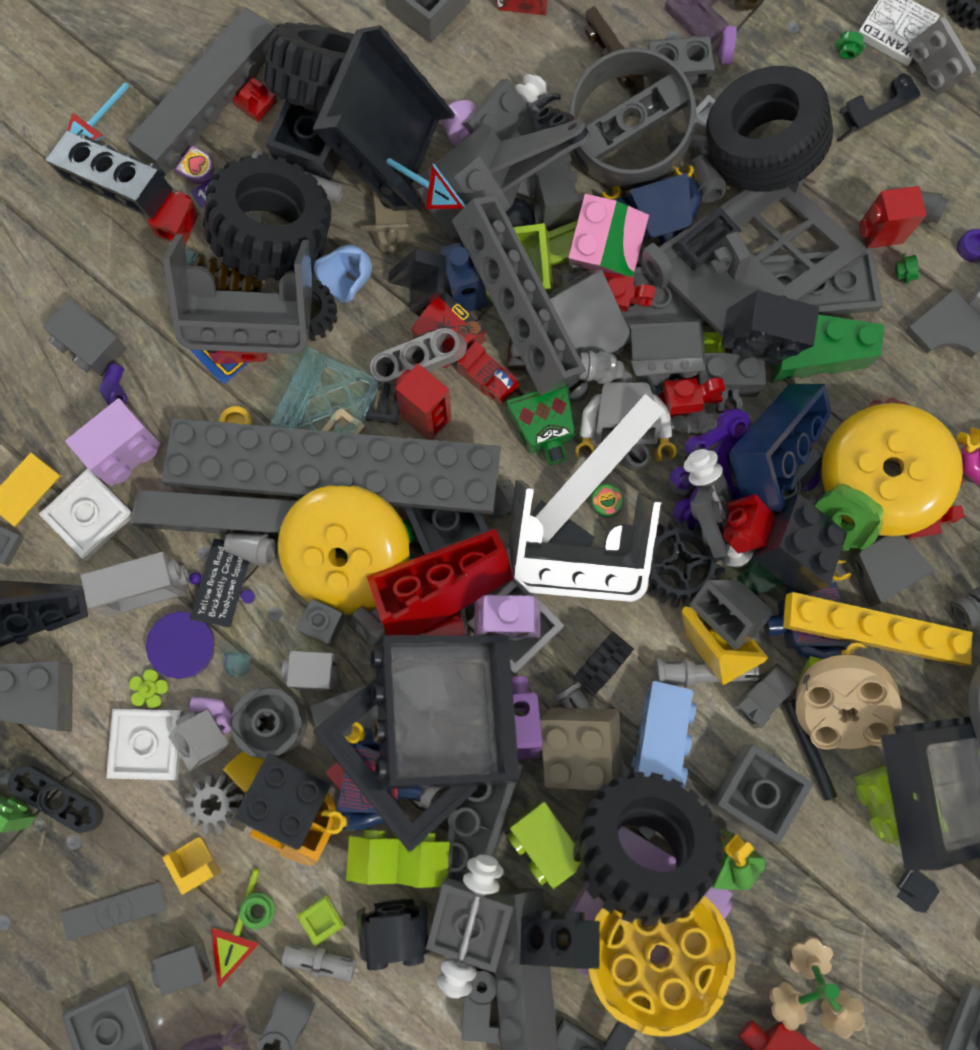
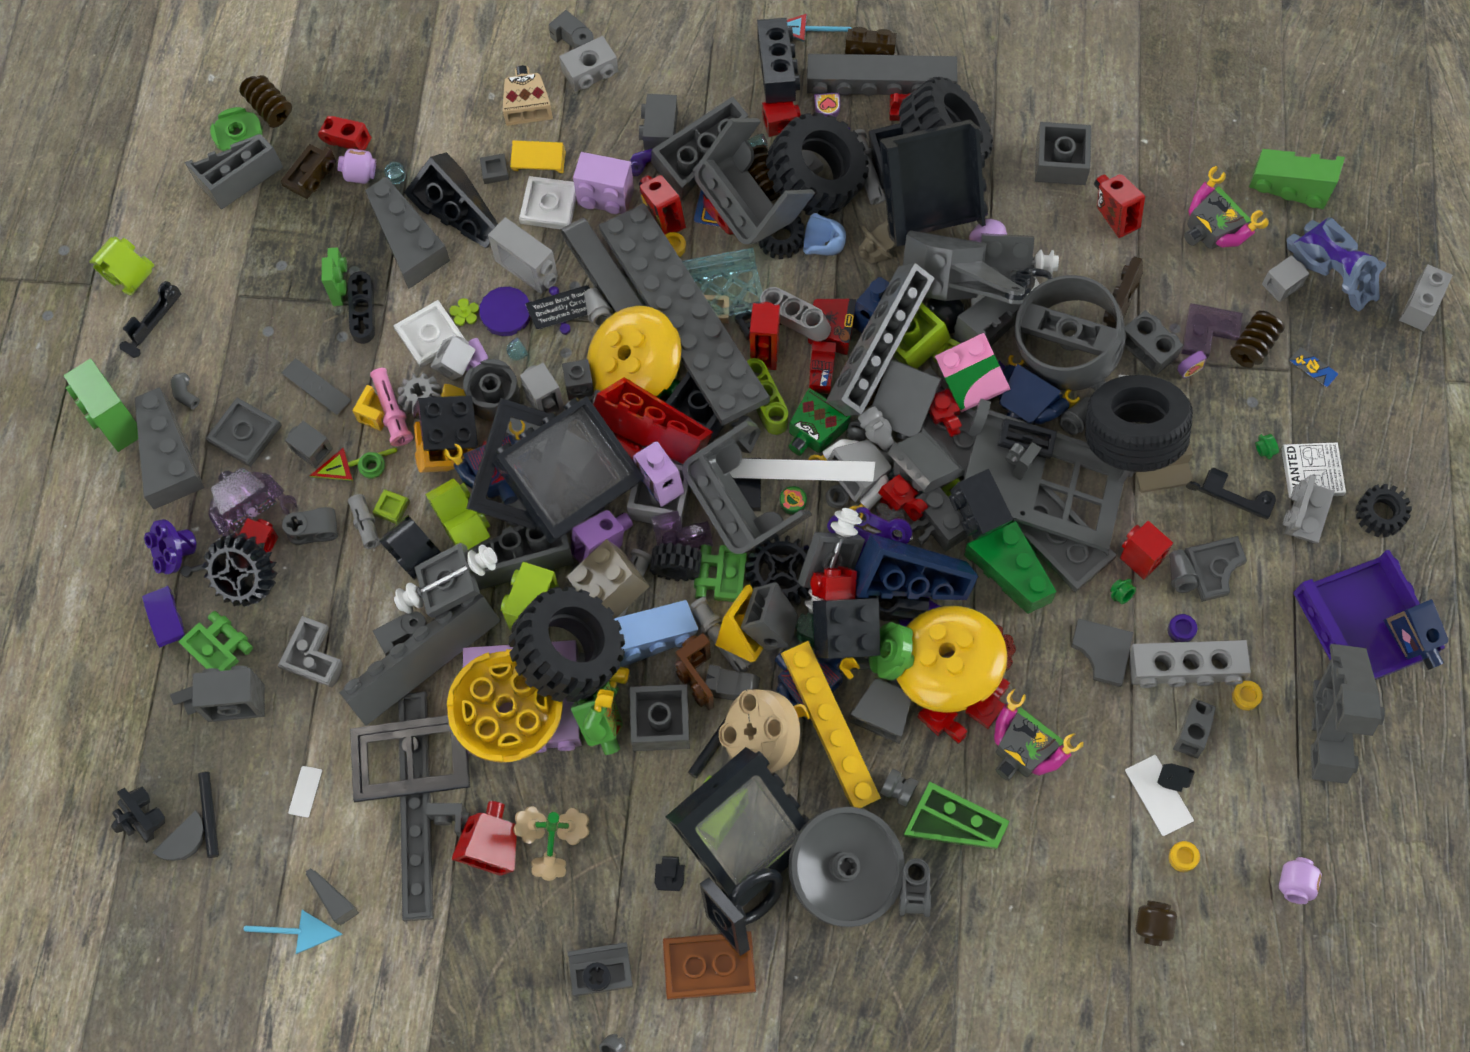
camera: 60 degrees right, 10 degrees down
(145, 320) = (682, 152): none -> dark grey wedge
(159, 76) = (868, 42): none -> dark brown bracket
(183, 399) = (657, 194): none -> red torso
(221, 854) = (394, 417): none -> bright pink pin
(423, 274) = (856, 277): black panel -> none
(439, 190) = (910, 247): medium azure piece -> none
(478, 437) = (776, 406): none -> lime beam
(560, 942) = (472, 637): black brick -> none
(571, 643) = (669, 530): none -> clear purple plate
(646, 617) = (729, 576): none -> bright green plate
(718, 716) = (689, 657): none -> reddish brown bracket
(933, 172) = (1215, 564): none -> dark grey tile

